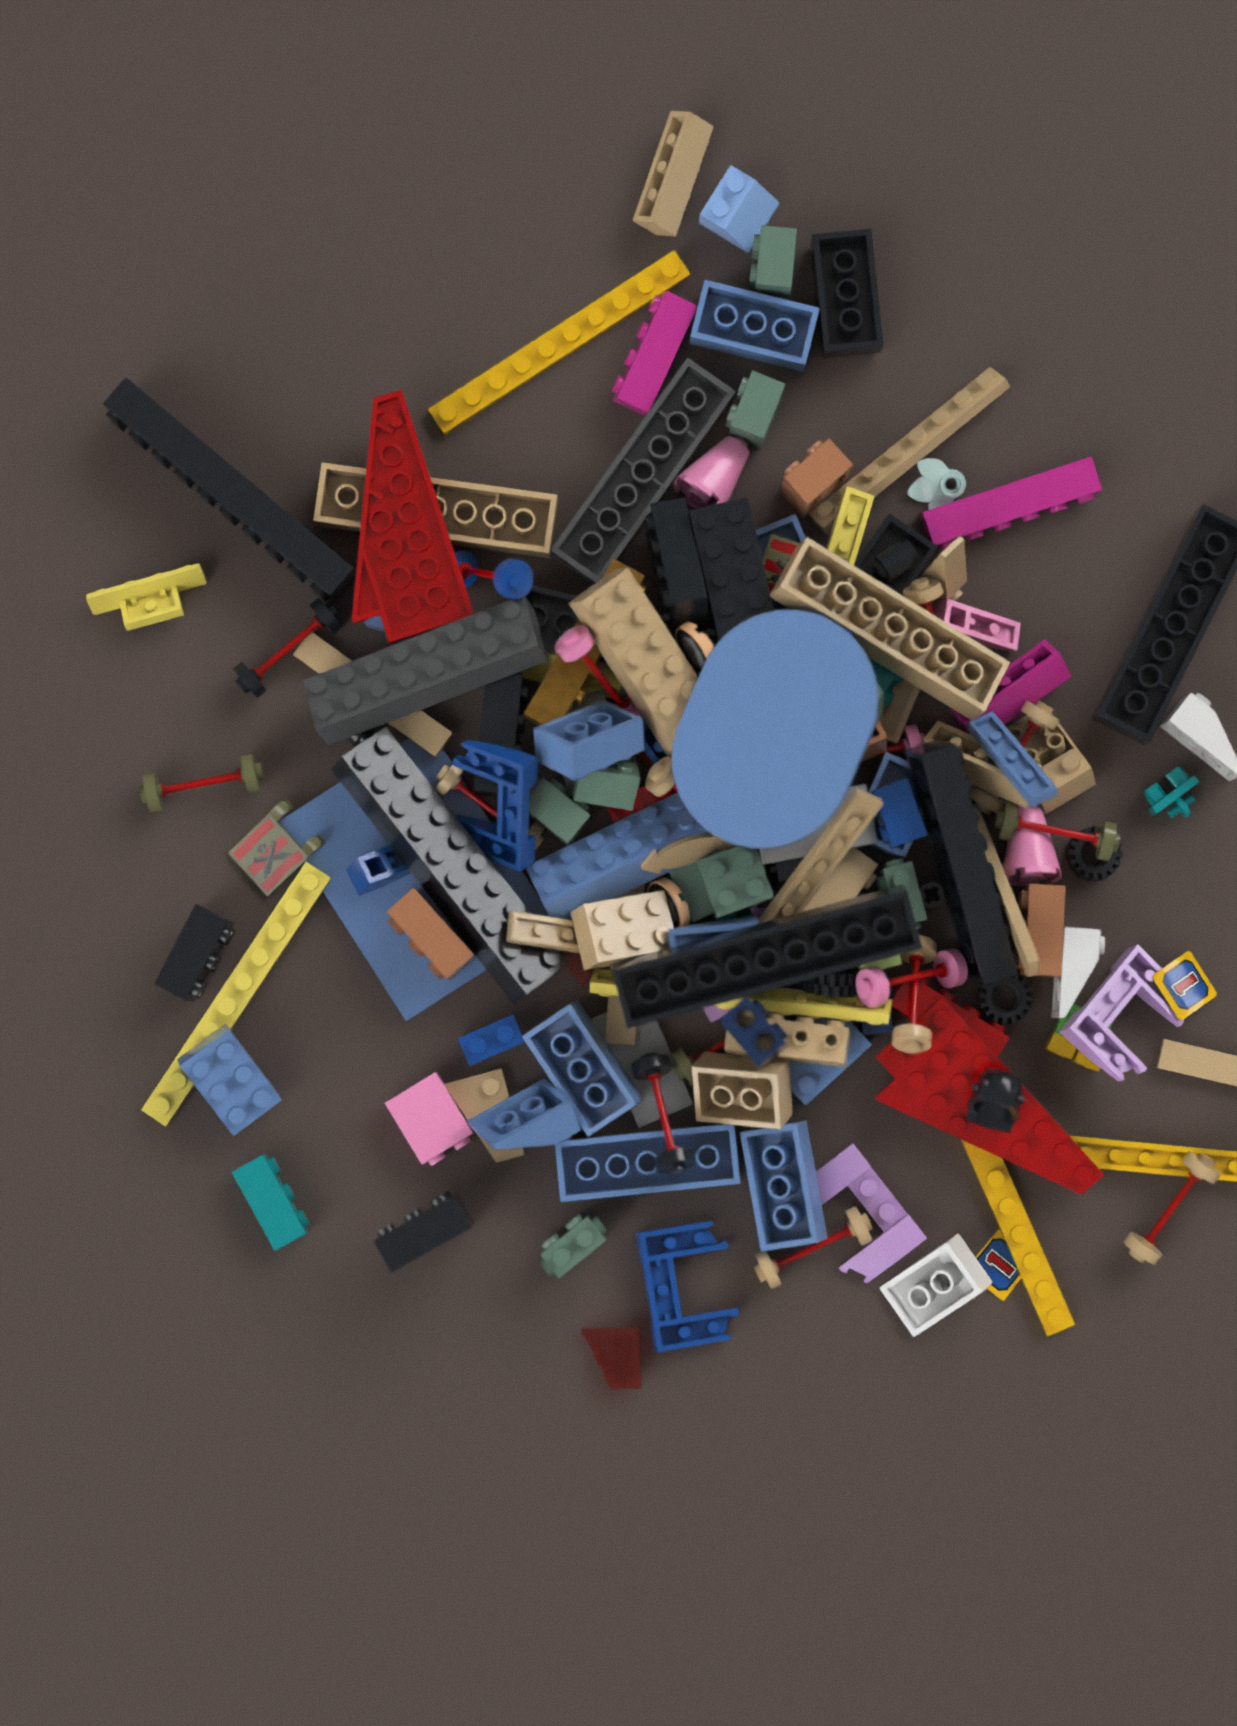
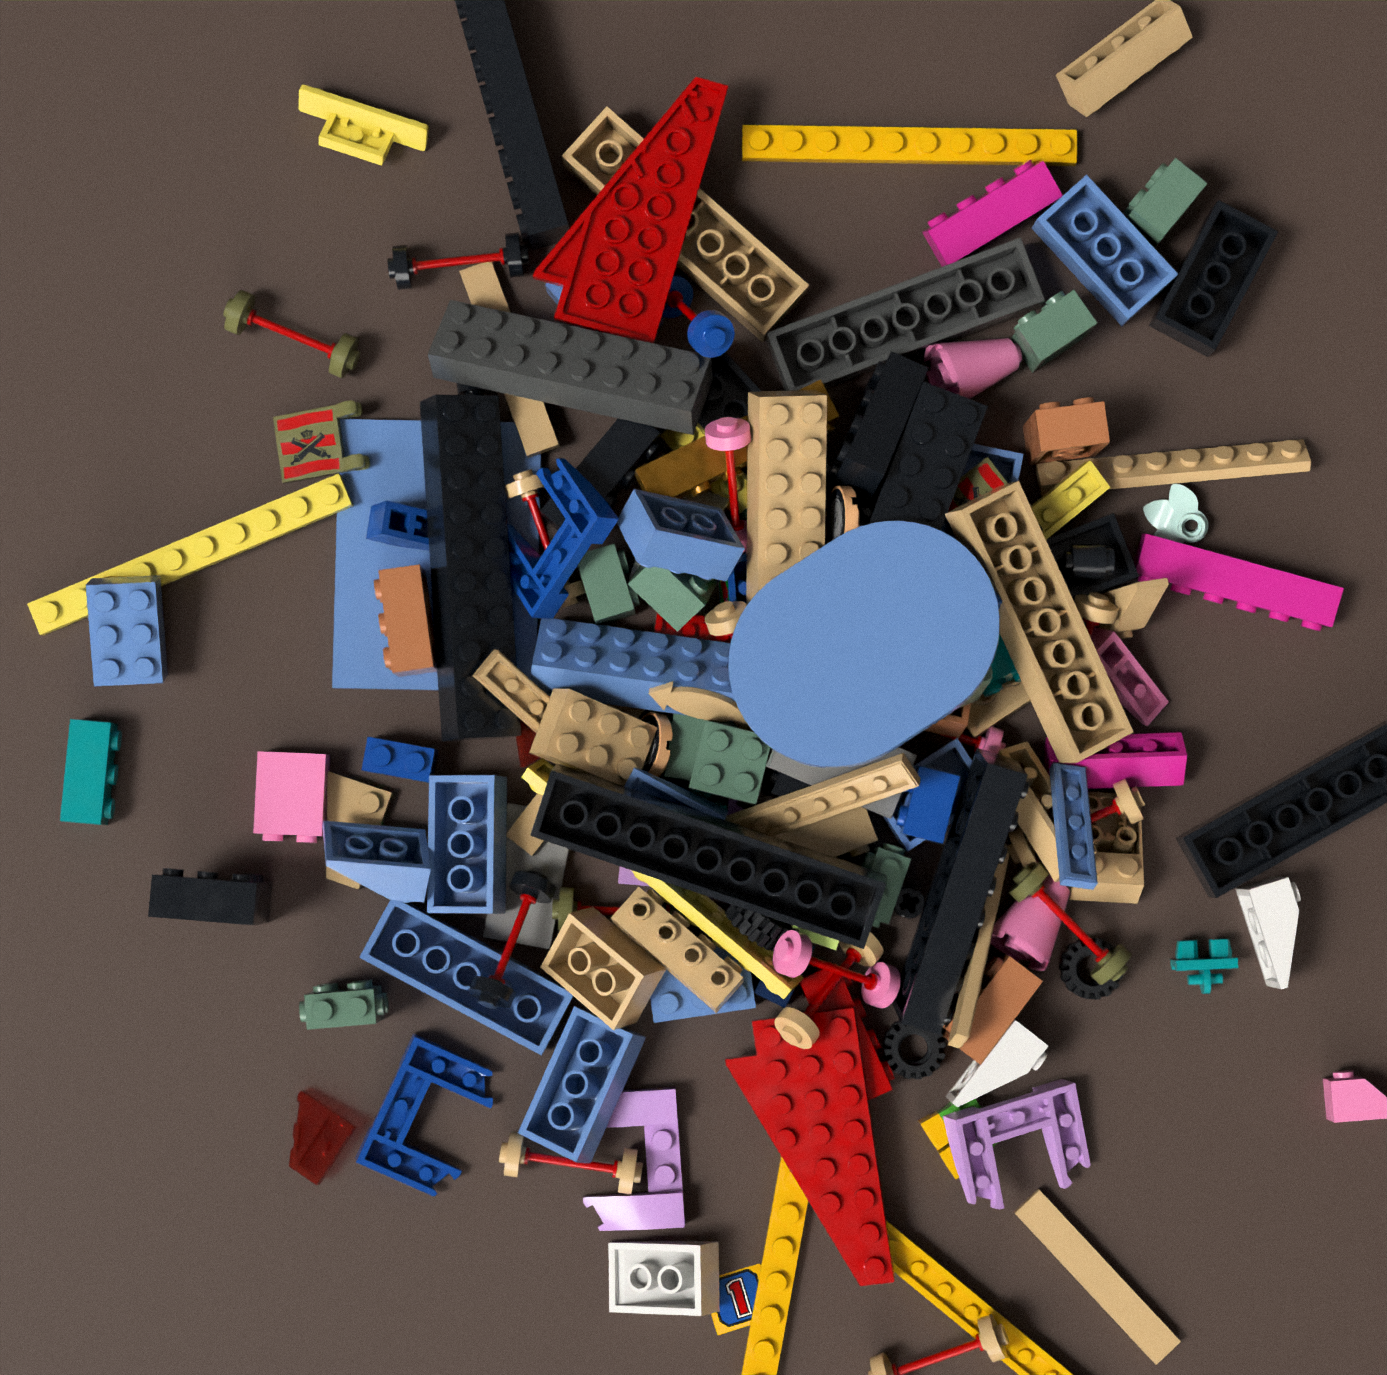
camera: 30 degrees right, 0 degrees up
(195, 954) = (175, 490): black brick -> none
(738, 209) = (1163, 130): light blue slope -> none
(749, 1036) = (640, 922): dark blue brick -> none
(995, 1100) = (837, 1141): black helmet -> none
(1184, 985) = (1093, 1152): sticker -> none

